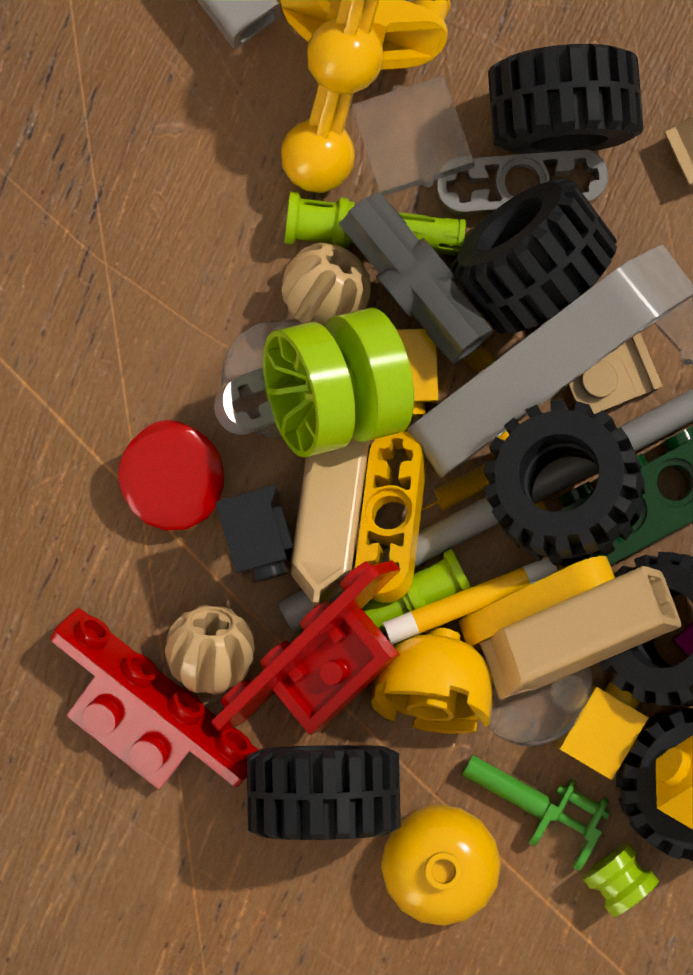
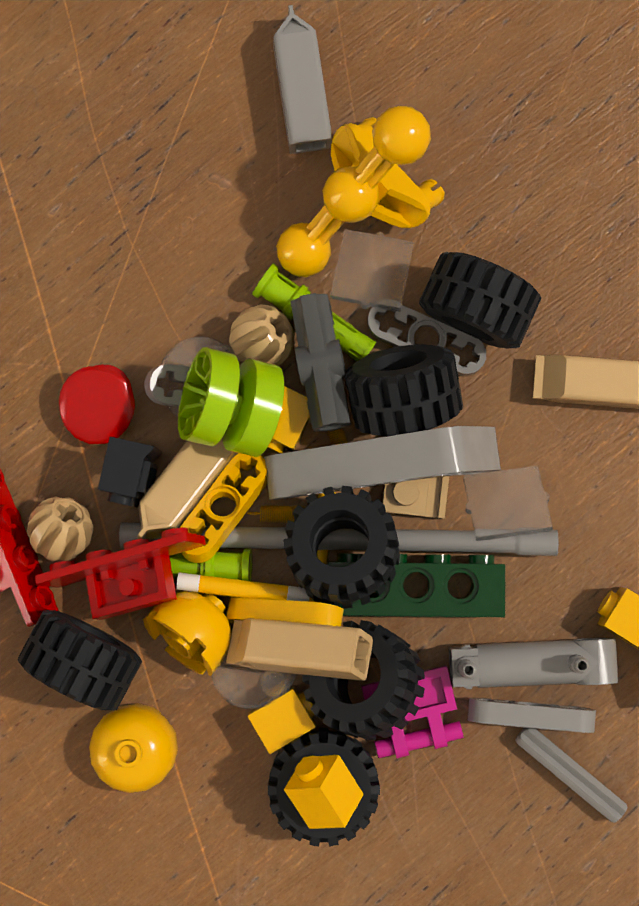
camera: 30 degrees right, 0 degrees up
(539, 804) = (218, 744): bright green piece -> none
(620, 879) = (242, 821): lime wheel -> none

